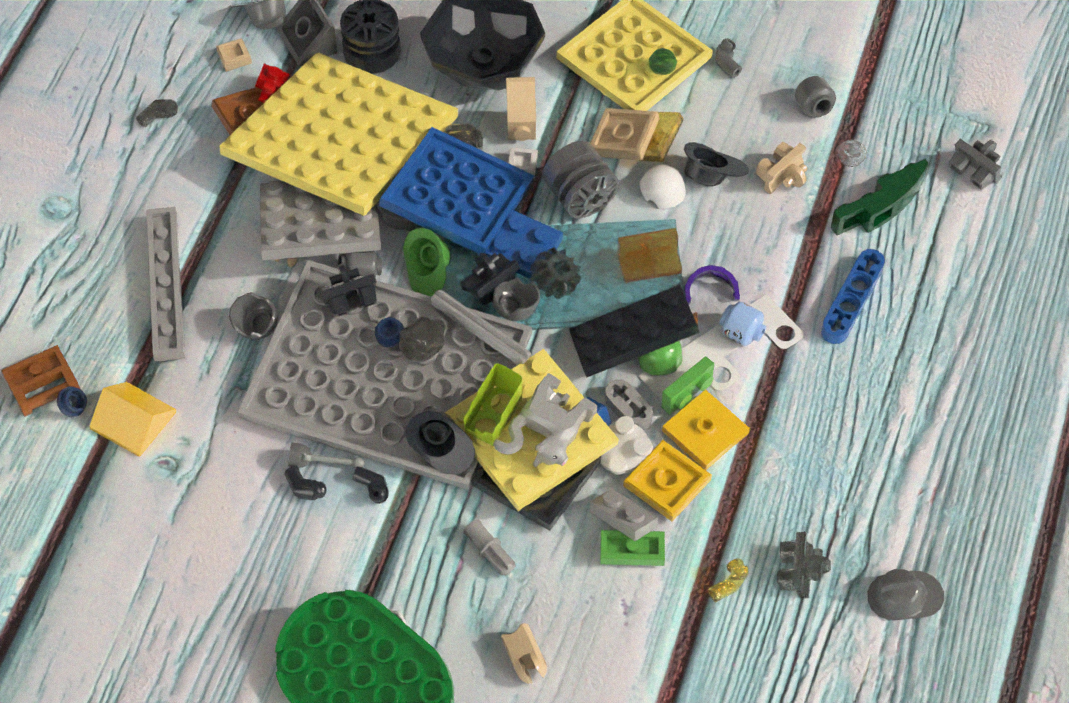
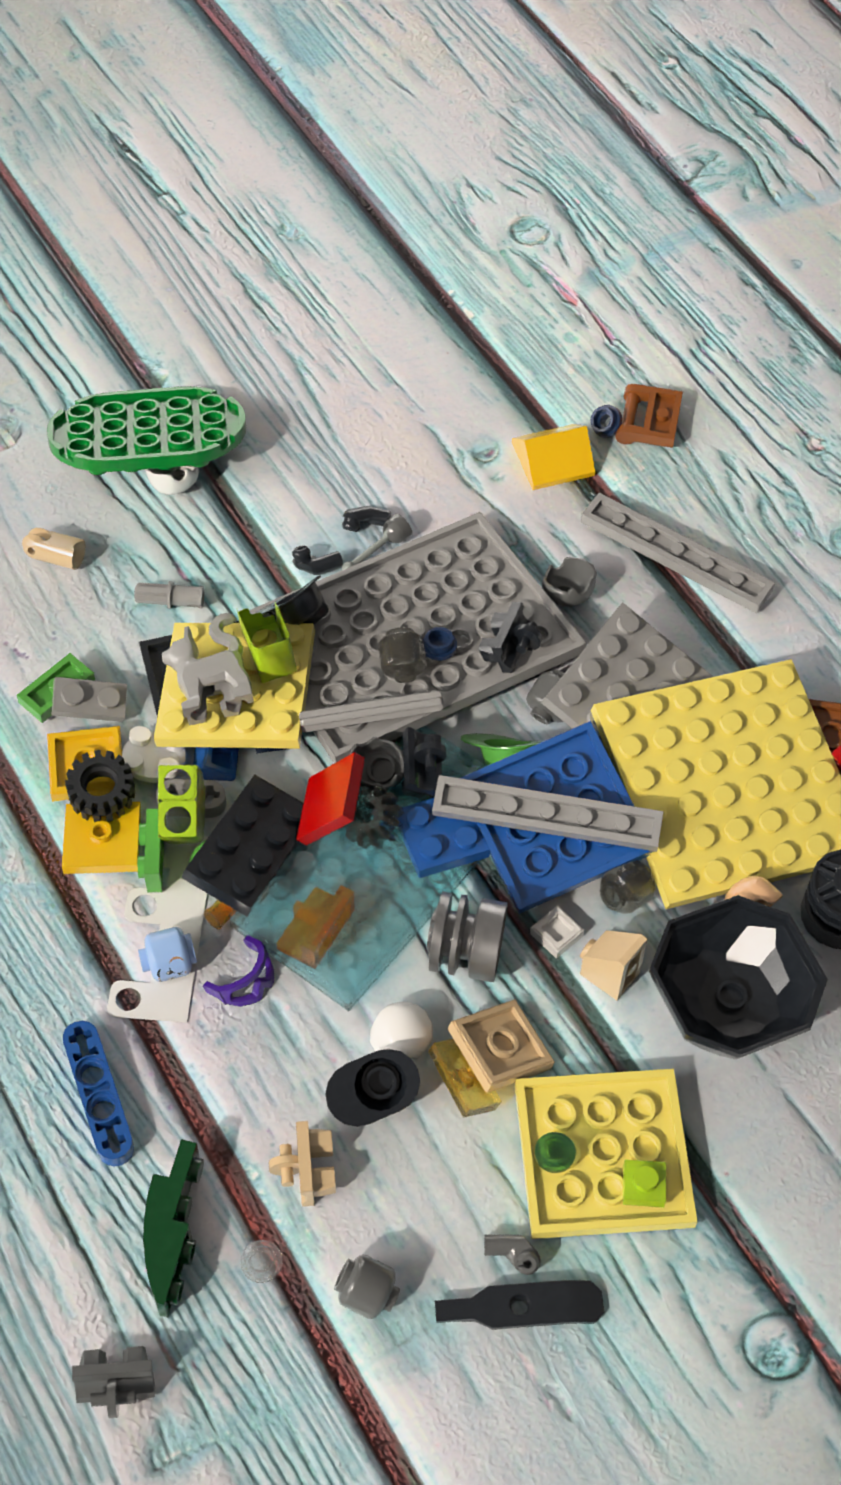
camera: 130 degrees right, 0 degrees up
(416, 74) = (755, 889): none -> light nougat hair
(468, 182) = (547, 813): none -> light grey plate
(567, 298) = (331, 799): none -> red tile
(637, 19) = (644, 1183): none -> lime plate
(659, 367) = (196, 809): none -> lime piece
(677, 453) = (94, 768): none -> black tyre
(740, 29) = (546, 1303): none -> black piece

